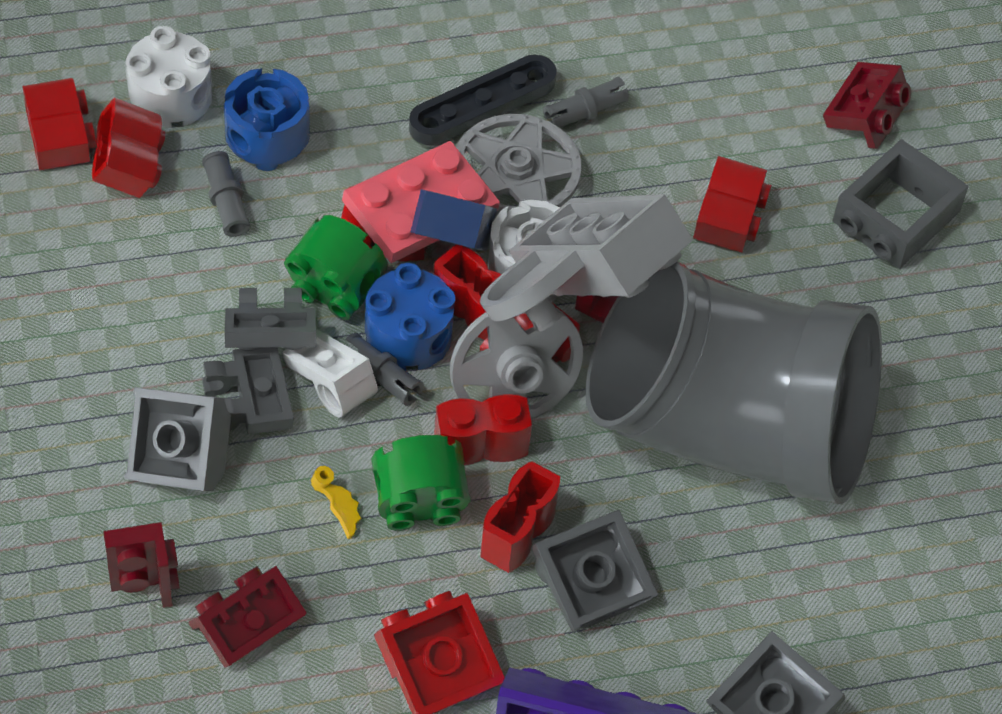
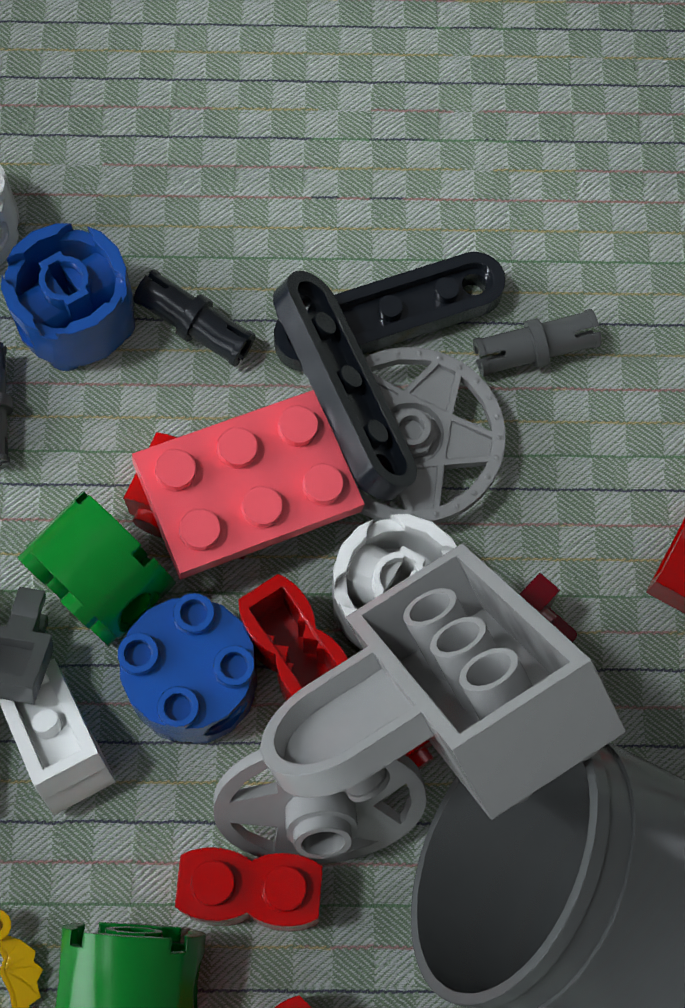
camera: 15 degrees right, 15 degrees up
(352, 122) = (194, 317): none -> black pin
(387, 371) = (132, 744): dark grey pin -> none
(453, 220) = (282, 538): dark blue slope -> none
(461, 127) = (344, 386): none -> black plate

